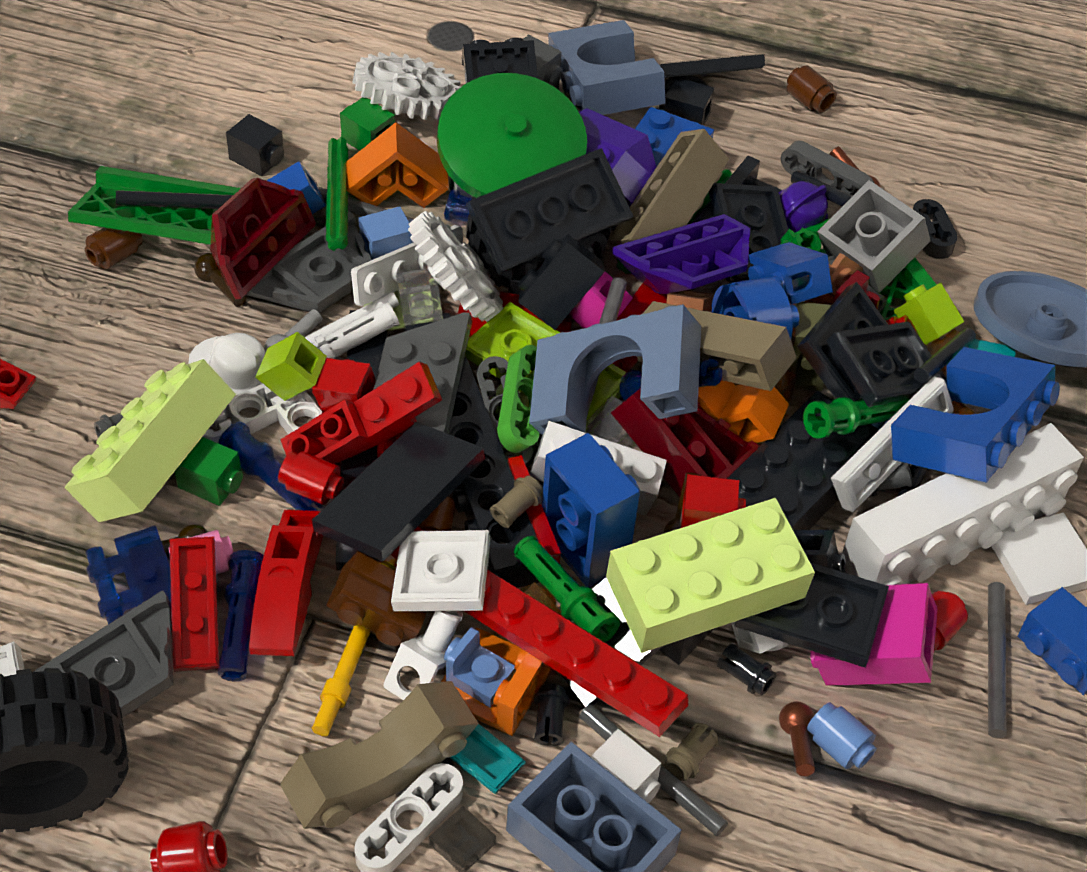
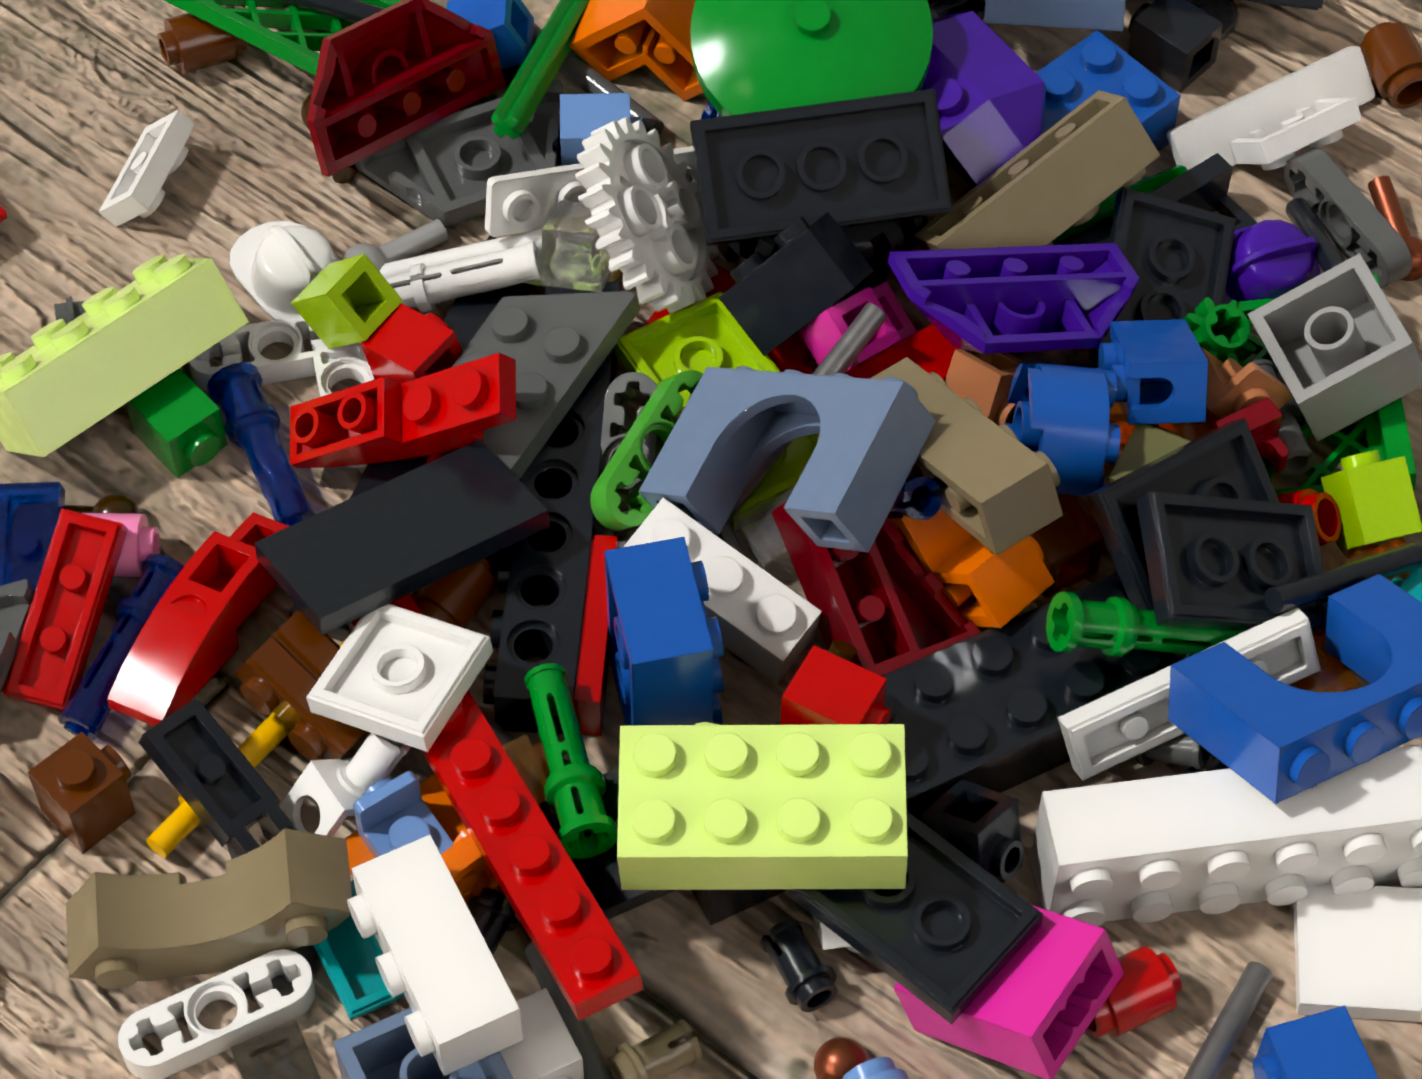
camera: 25 degrees right, 5 degrees up
(115, 328) = (144, 173): none -> white plate
(259, 710) = (83, 791): none -> reddish brown brick
(311, 477) = (299, 475): red brick -> none
(348, 675) = (214, 778): none -> black hinge
(524, 494) = (567, 604): dark tan pin -> none
(552, 728) = (434, 956): none -> white brick
(768, 129) = (1281, 116): none -> white bracket

